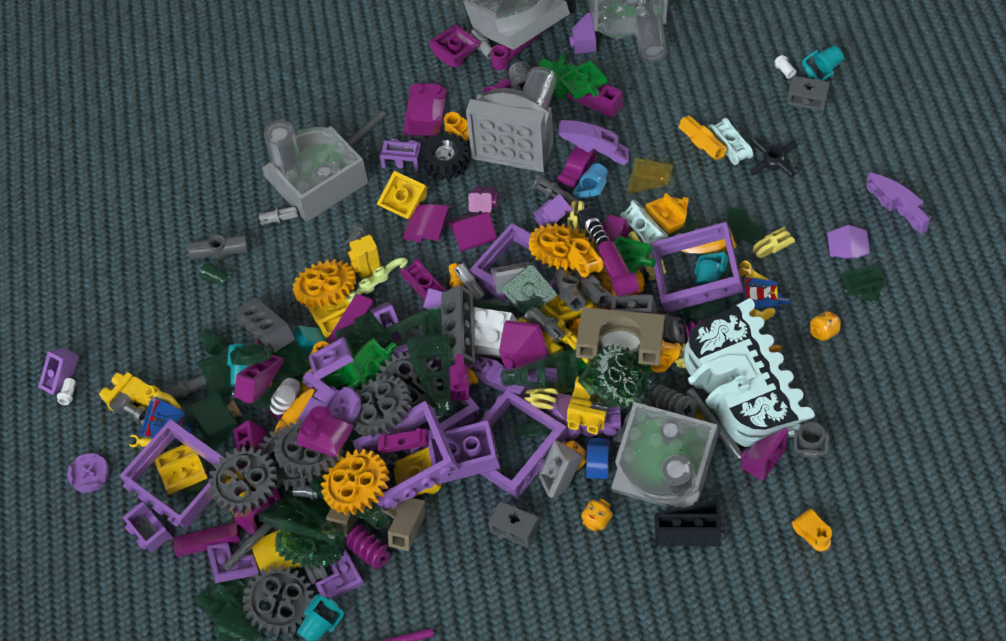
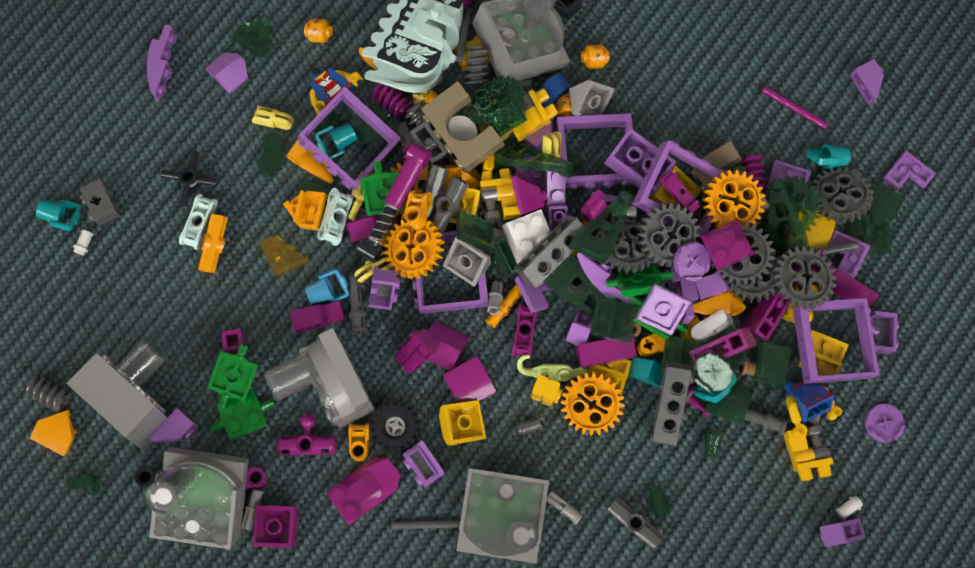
camera: 140 degrees left, 20 degrees up
(514, 524) = (649, 91): dark grey brick -> none
(518, 74) = (269, 431): dark grey piece -> none
(546, 324) = (496, 187): dark grey pin -> none
(590, 136) = (290, 313): medium lavender slope -> none

